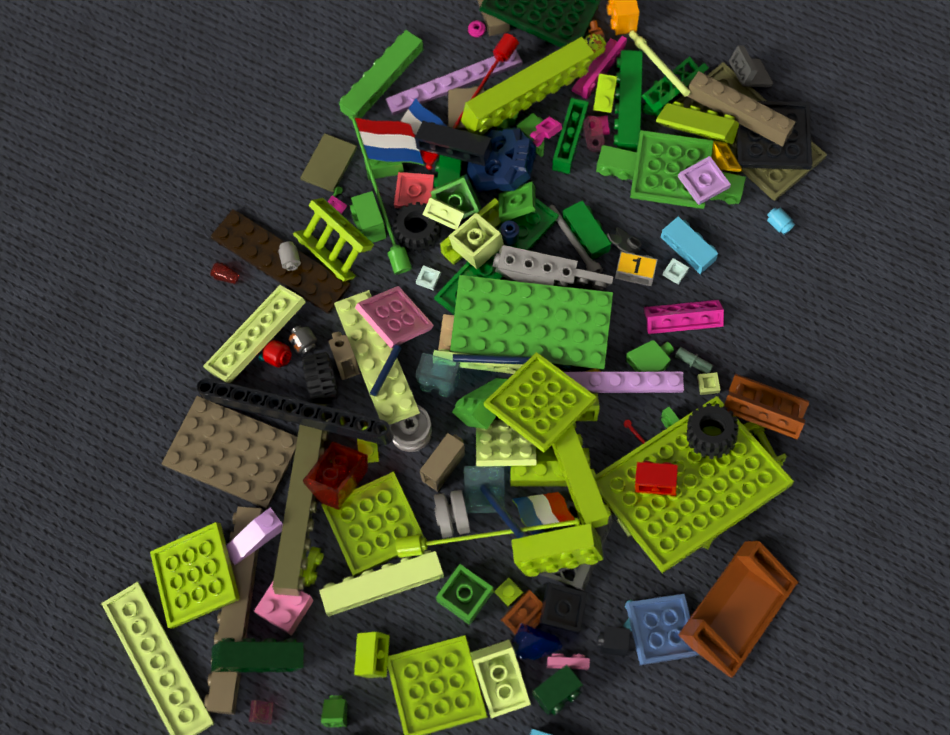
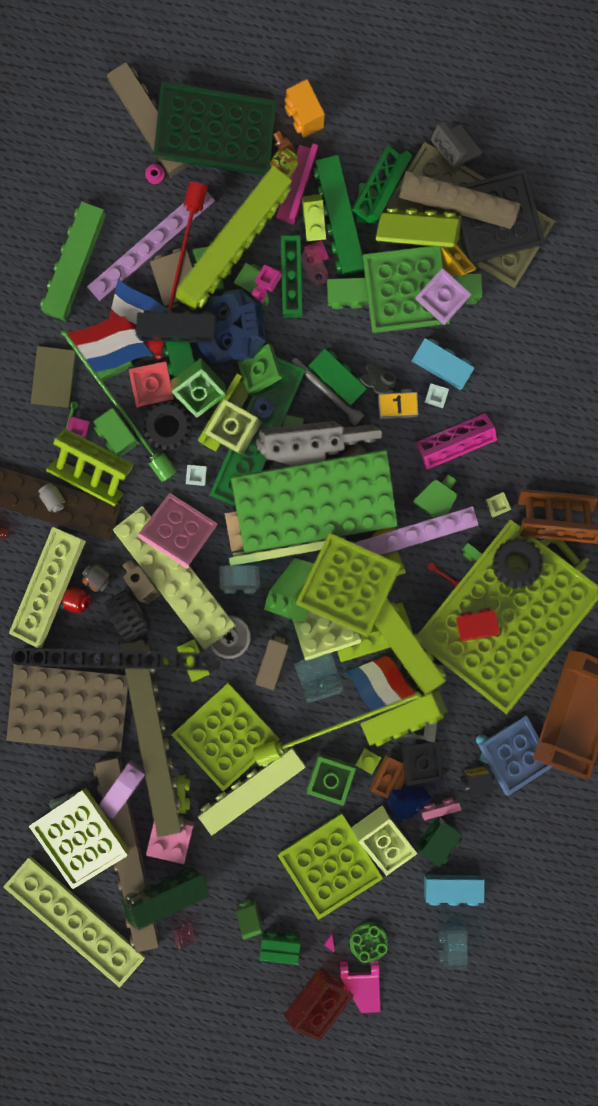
camera: 15 degrees left, 20 degrees up
(336, 474) = (176, 706): clear red slope -> none
(371, 655) = (264, 858): lime brick -> none
(385, 370) = (189, 594): dark blue bar -> none
(443, 213) = (191, 409): yellowish green plate -> none
(451, 513) = (293, 711): light grey wheel -> none
(490, 359) = (287, 551): dark blue bar -> none
(501, 511) = (343, 699): dark blue bar -> none
(641, 43) = (333, 143): yellowish green bar -> none
(693, 360) = (478, 485): sand green axle -> none
(780, 220) = (525, 309): medium azure brick -> none

